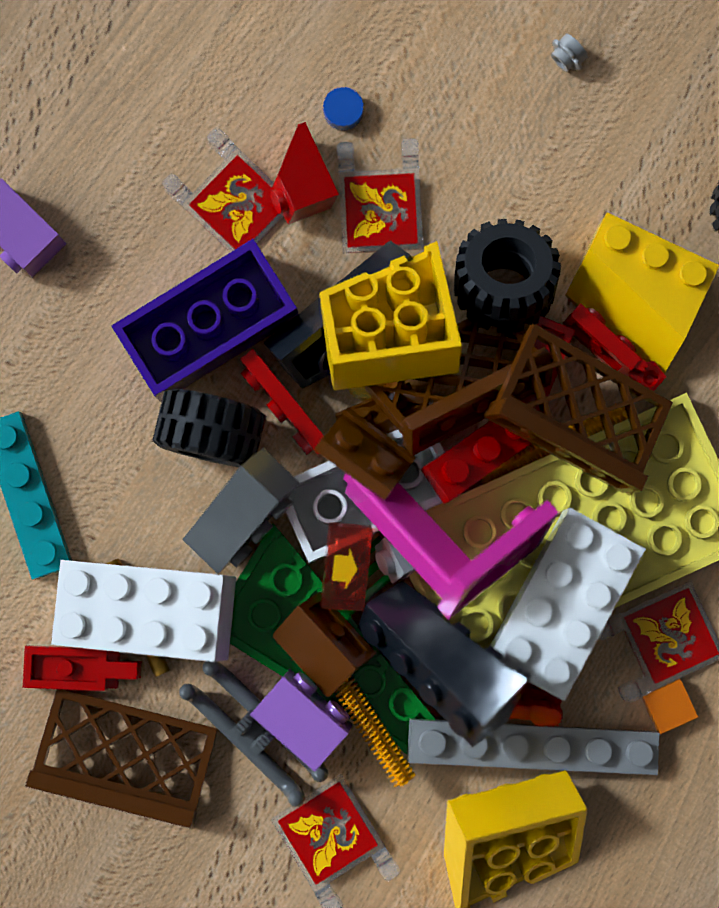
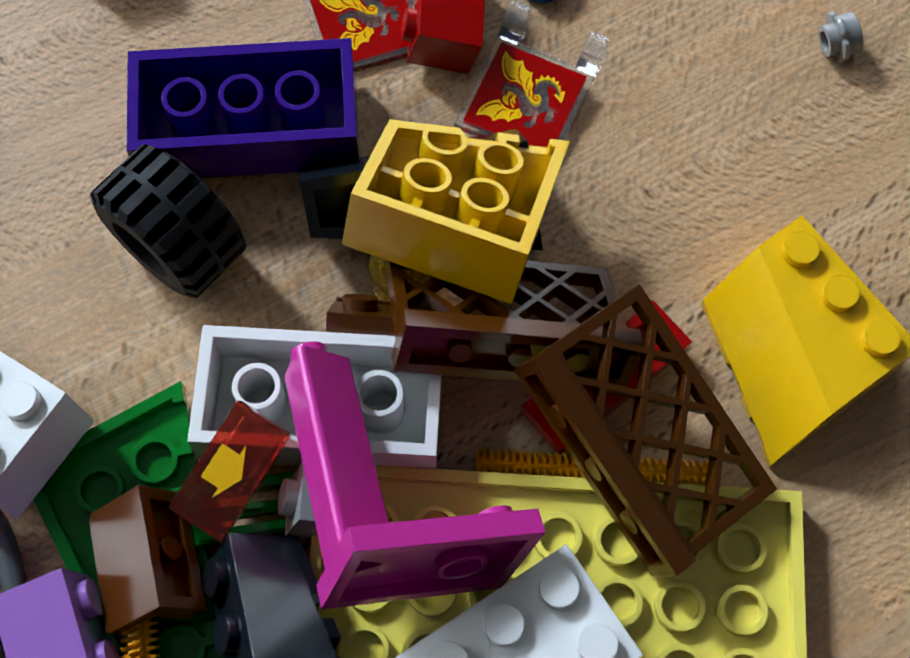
camera: 25 degrees right, 15 degrees down
(242, 512) = (144, 334): dark grey brick -> none
(282, 403) = (279, 250): red plate -> none
(365, 453) = (333, 334): reddish brown plate -> none
(471, 460) = (471, 421): red plate -> none
(509, 248) = (636, 227): black tyre -> none
(612, 349) = (715, 359): red hinge -> none

